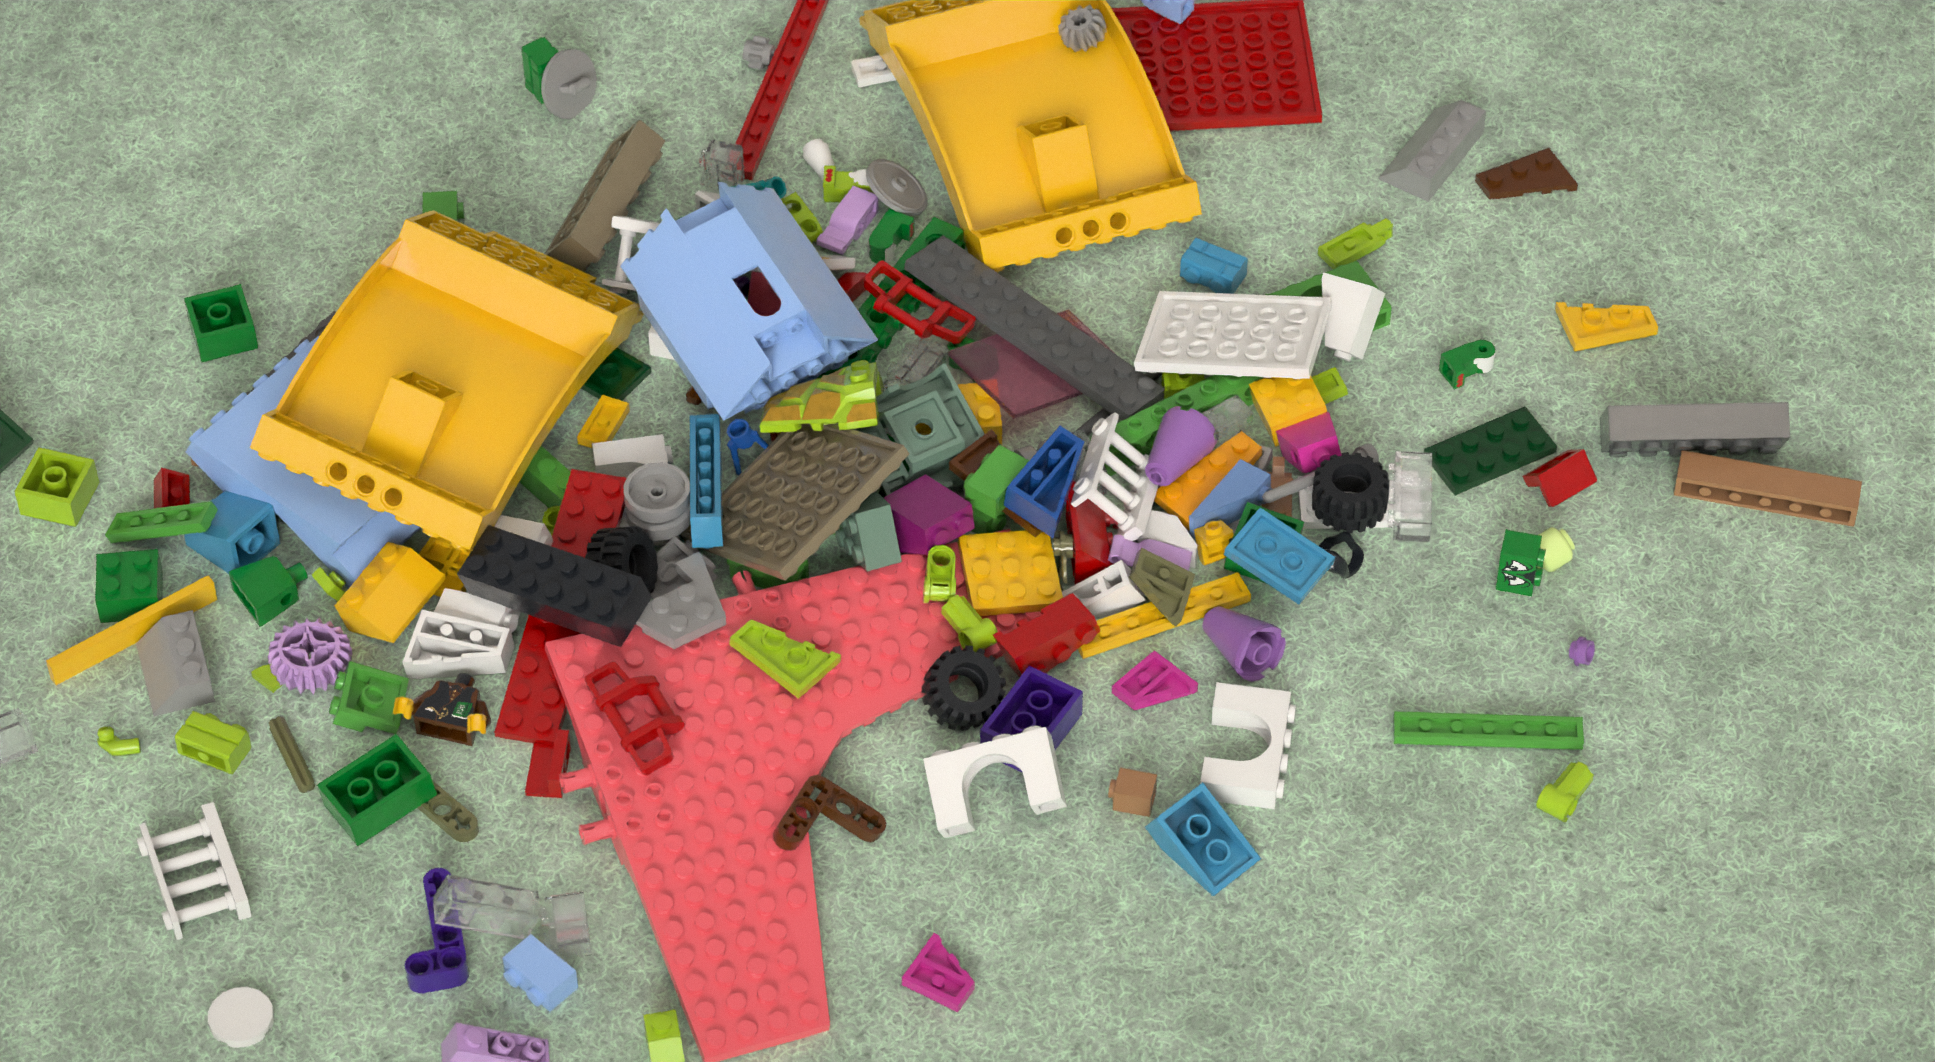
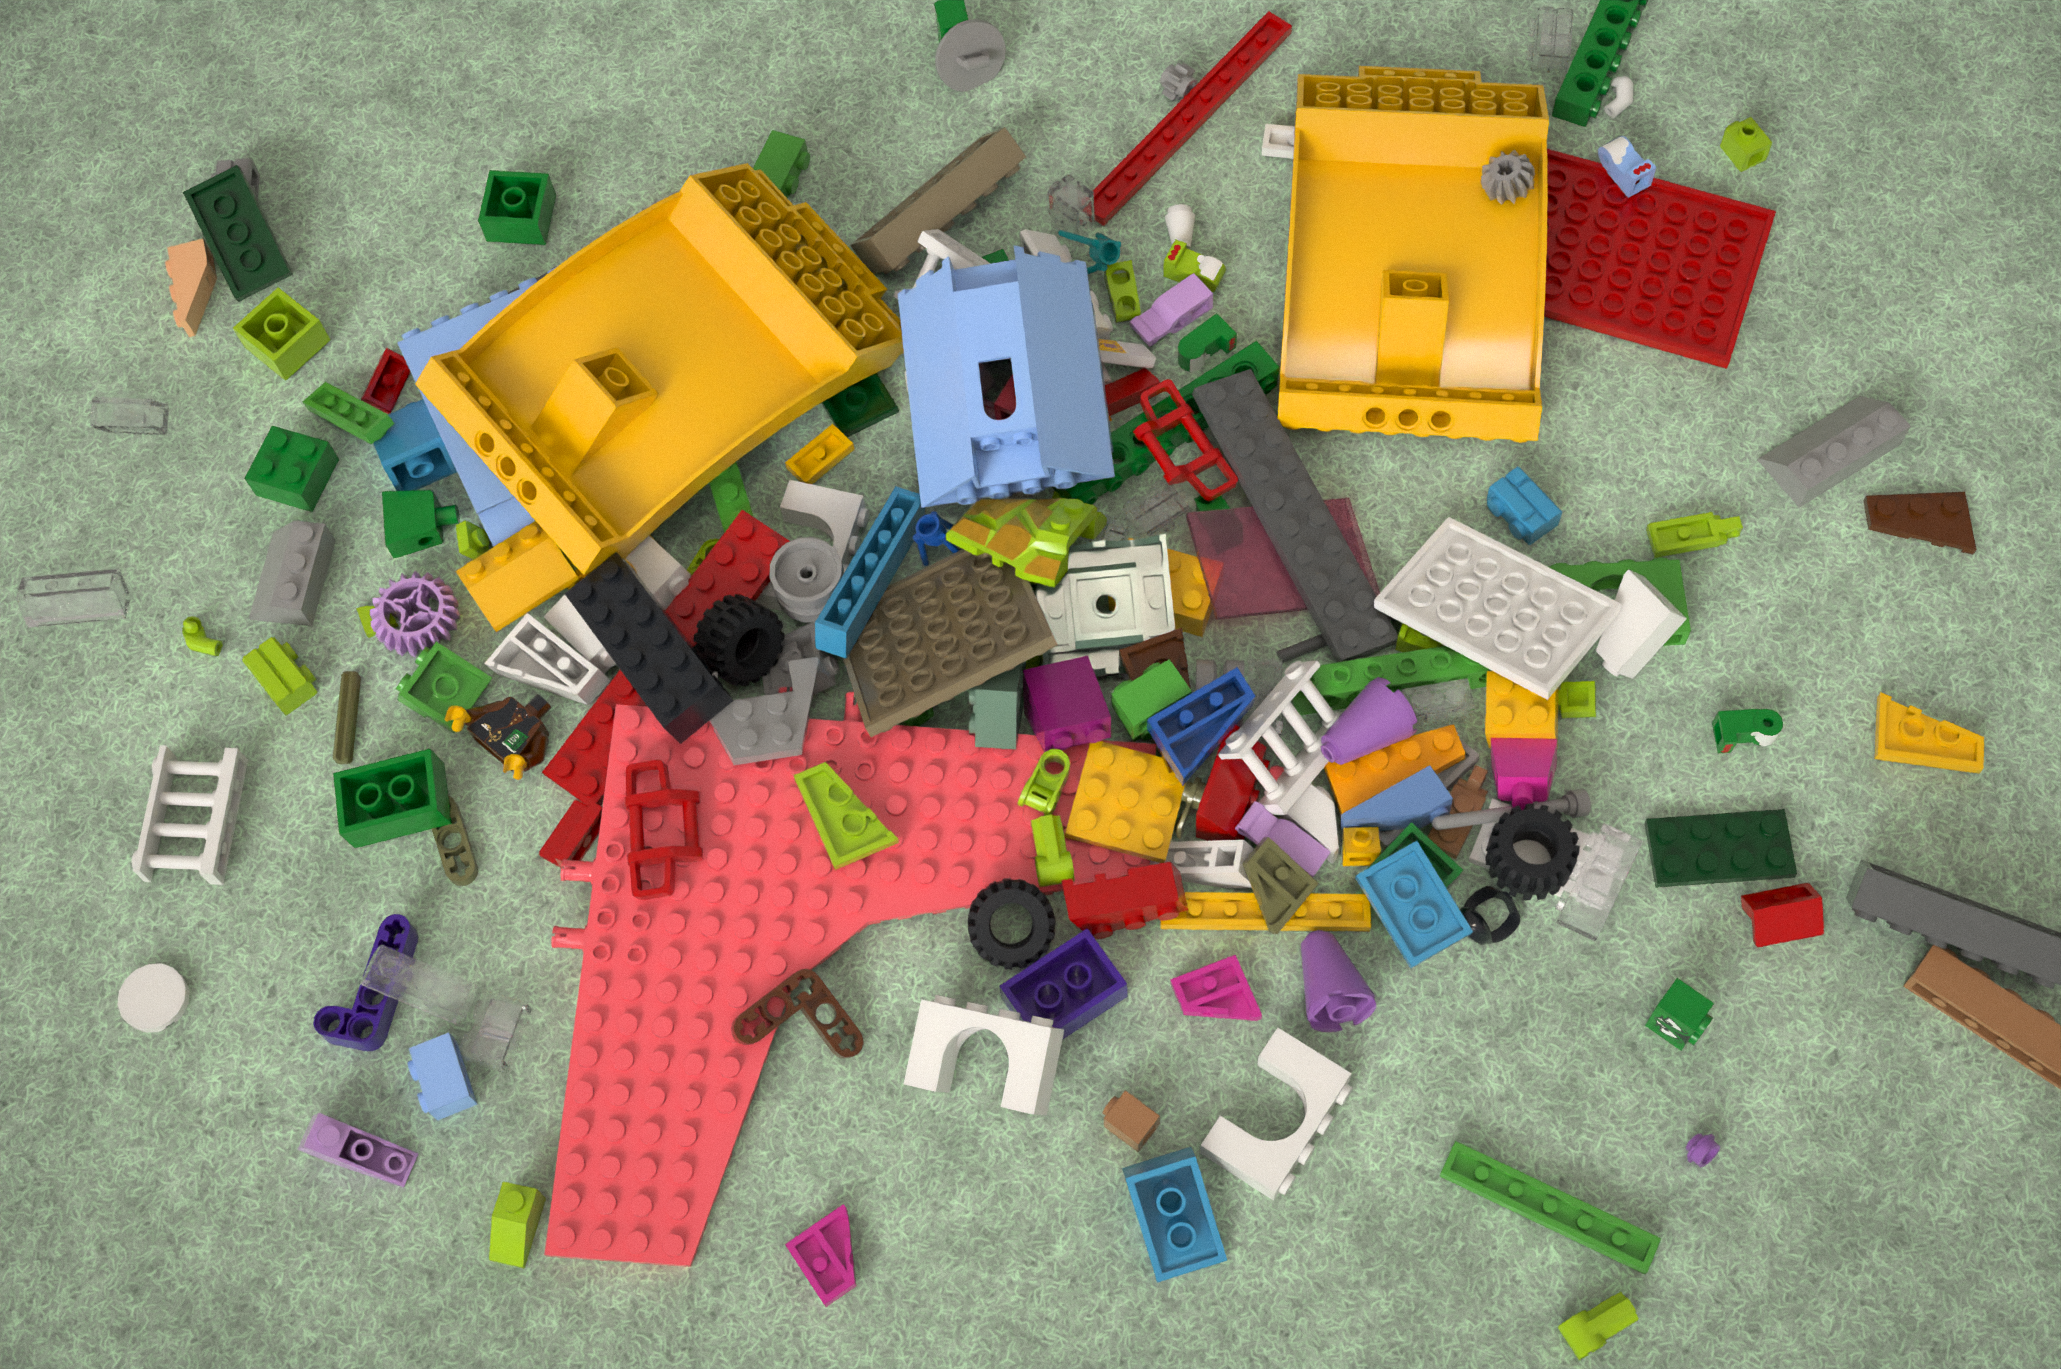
camera: 30 degrees right, 15 degrees up
(128, 630) = (270, 518): yellow tile -> none
(896, 187) = (1237, 290): light grey shield -> none
(1558, 548) = (1731, 1005): yellowish green head -> none

